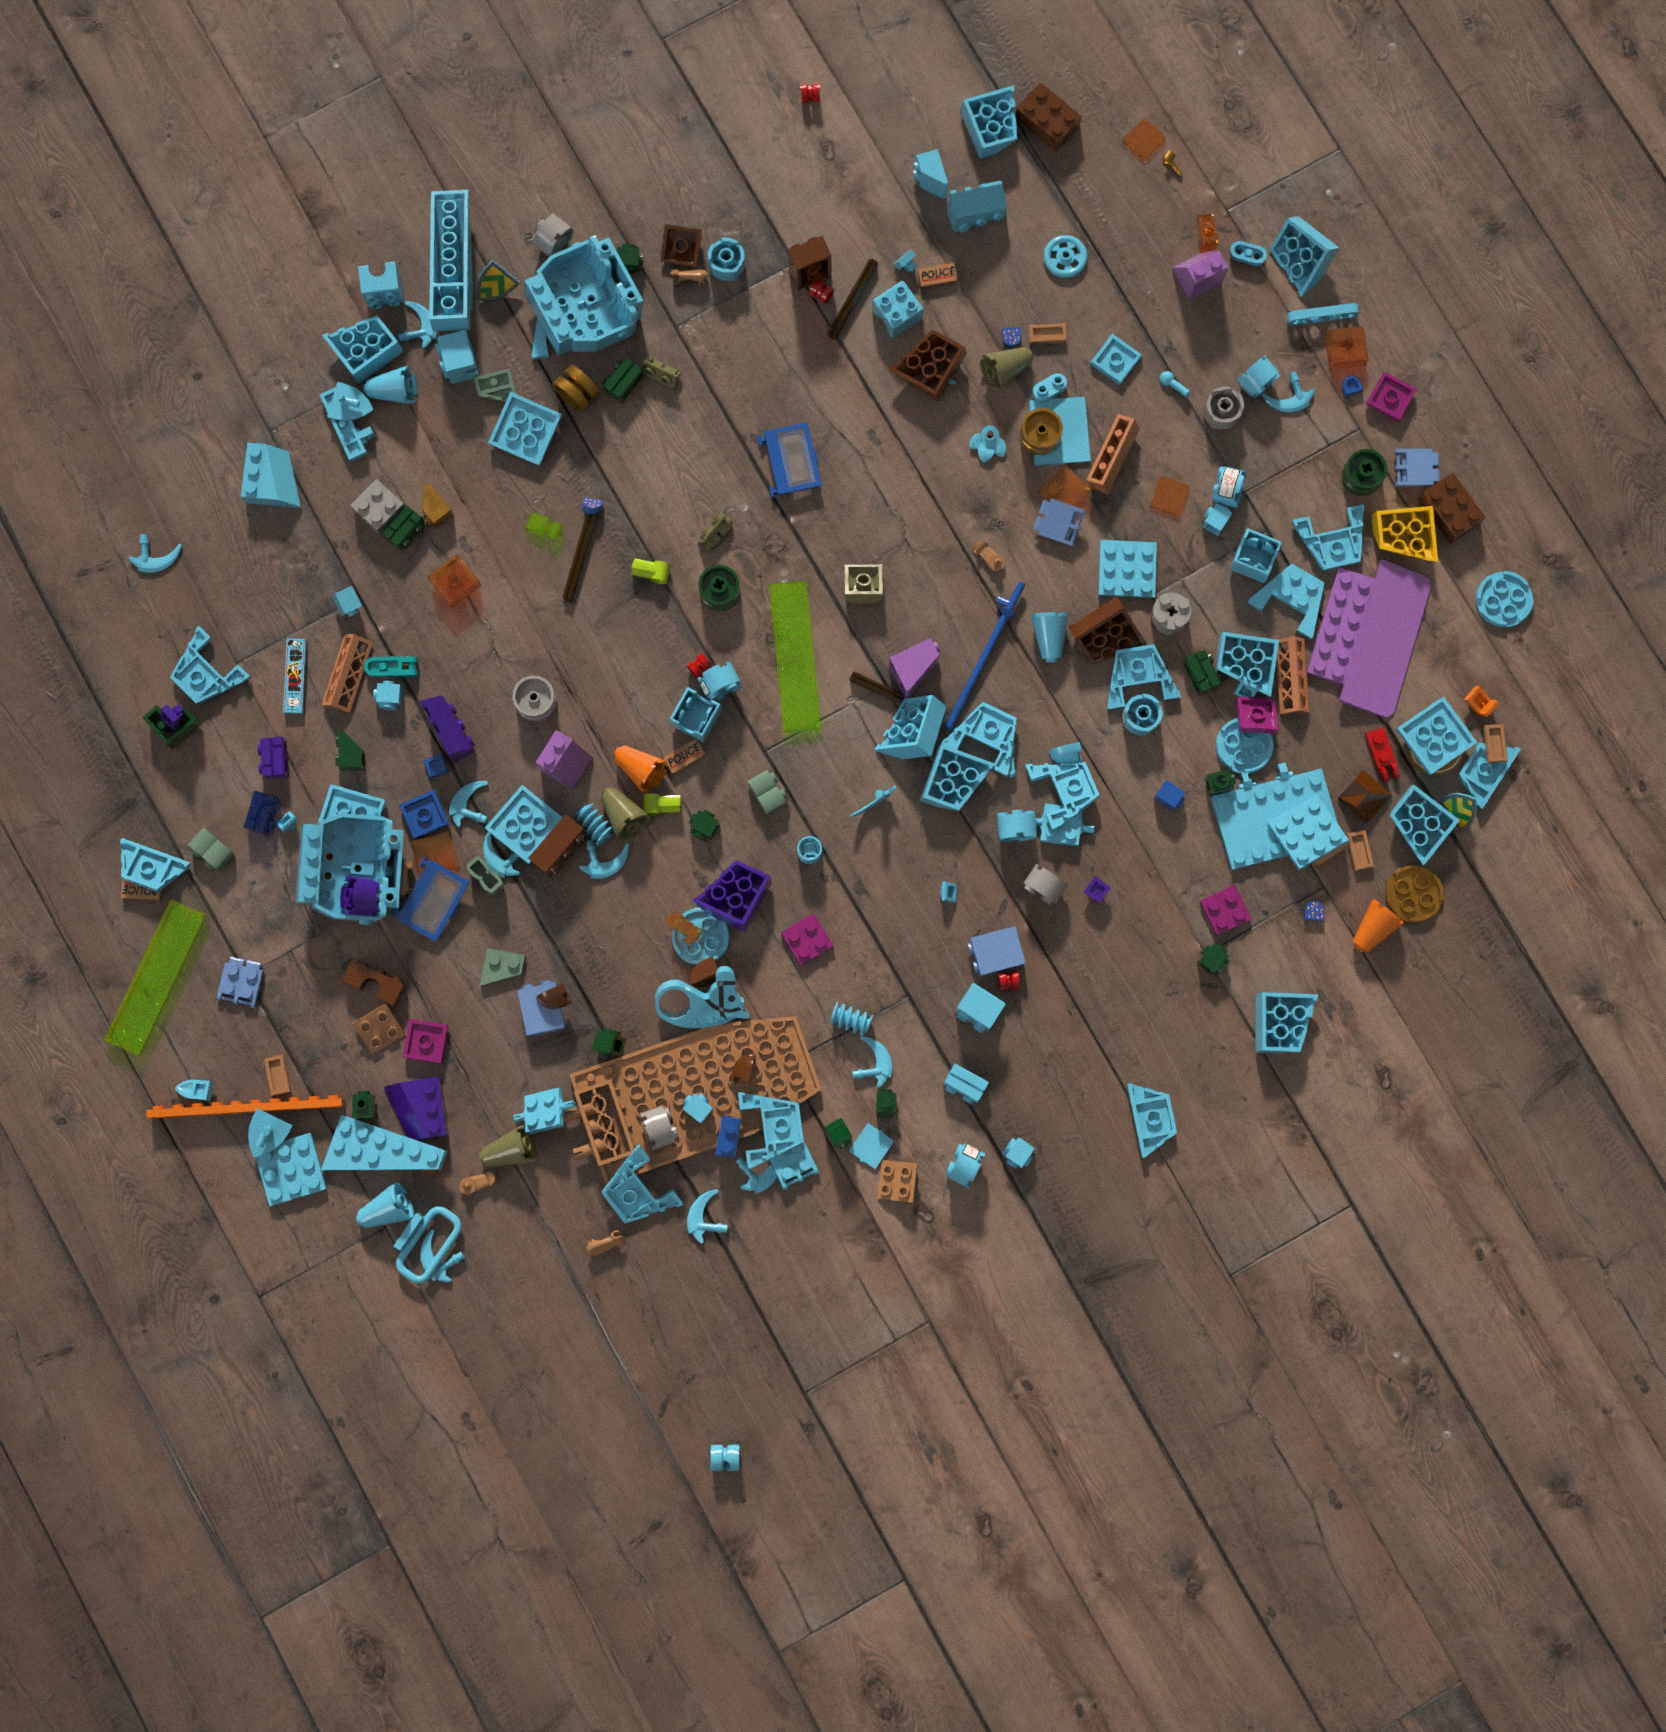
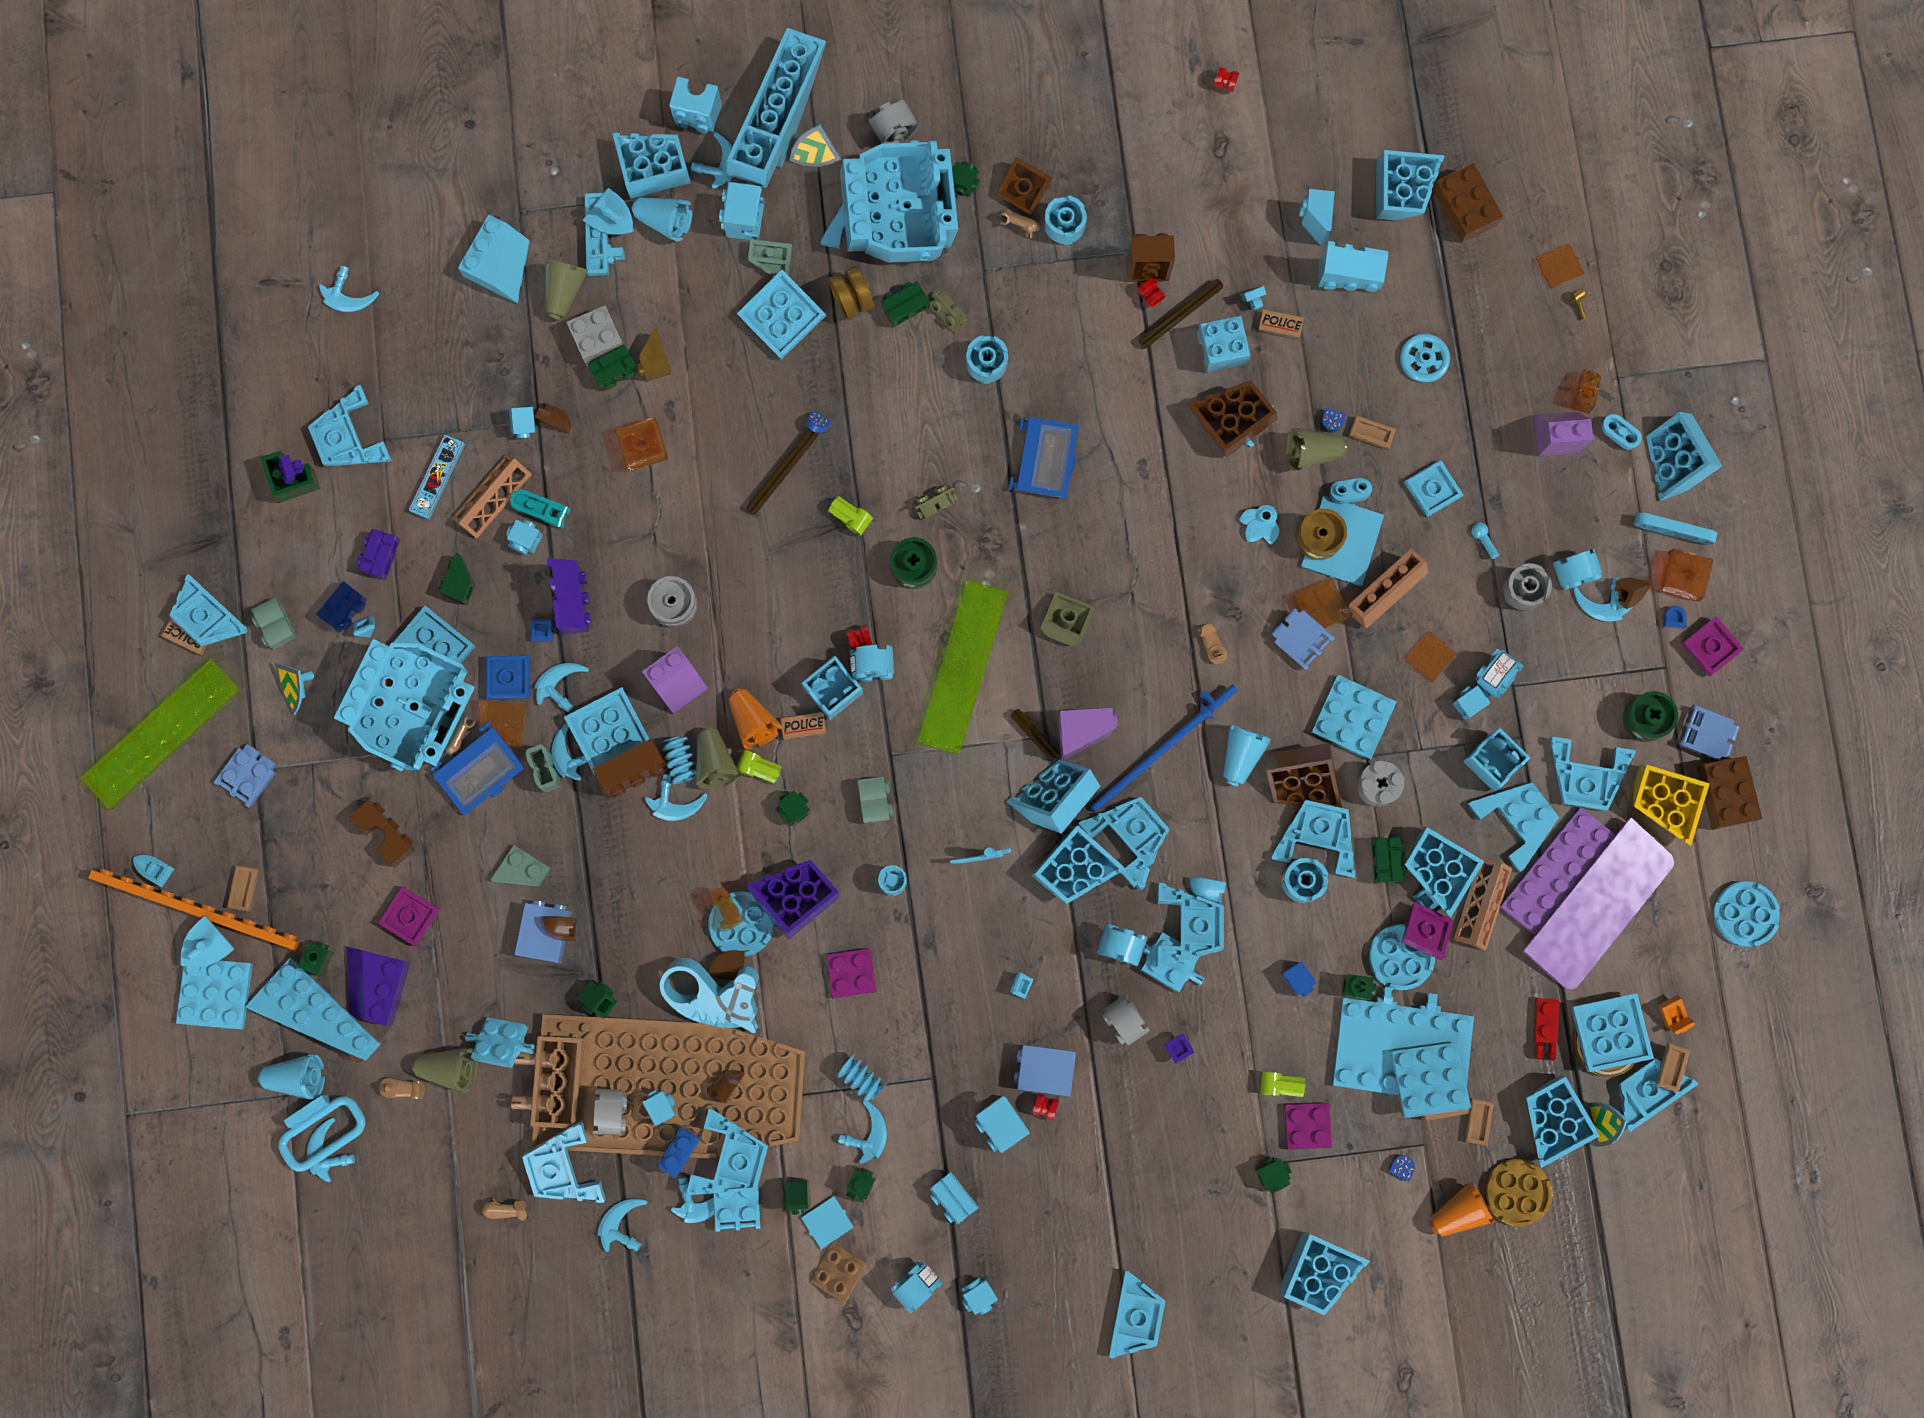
camera: 20 degrees right, 0 degrees up
(247, 893) = (292, 685): none -> shield
(333, 478) = (561, 287): none -> olive cone
(359, 896) = (401, 738): dark purple brick -> none
(372, 589) = (554, 417): none -> reddish brown brick
(378, 1028) = (366, 883): medium nougat hinge -> none
(539, 524) = (756, 420): clear neon green plate -> none
(707, 388) = (987, 370): none -> medium azure brick
(1186, 887) = (1278, 1085): none -> lime piece
(1308, 378) = (1631, 591): none -> reddish brown brick
(1364, 796) = (1508, 1065): reddish brown slope -> none

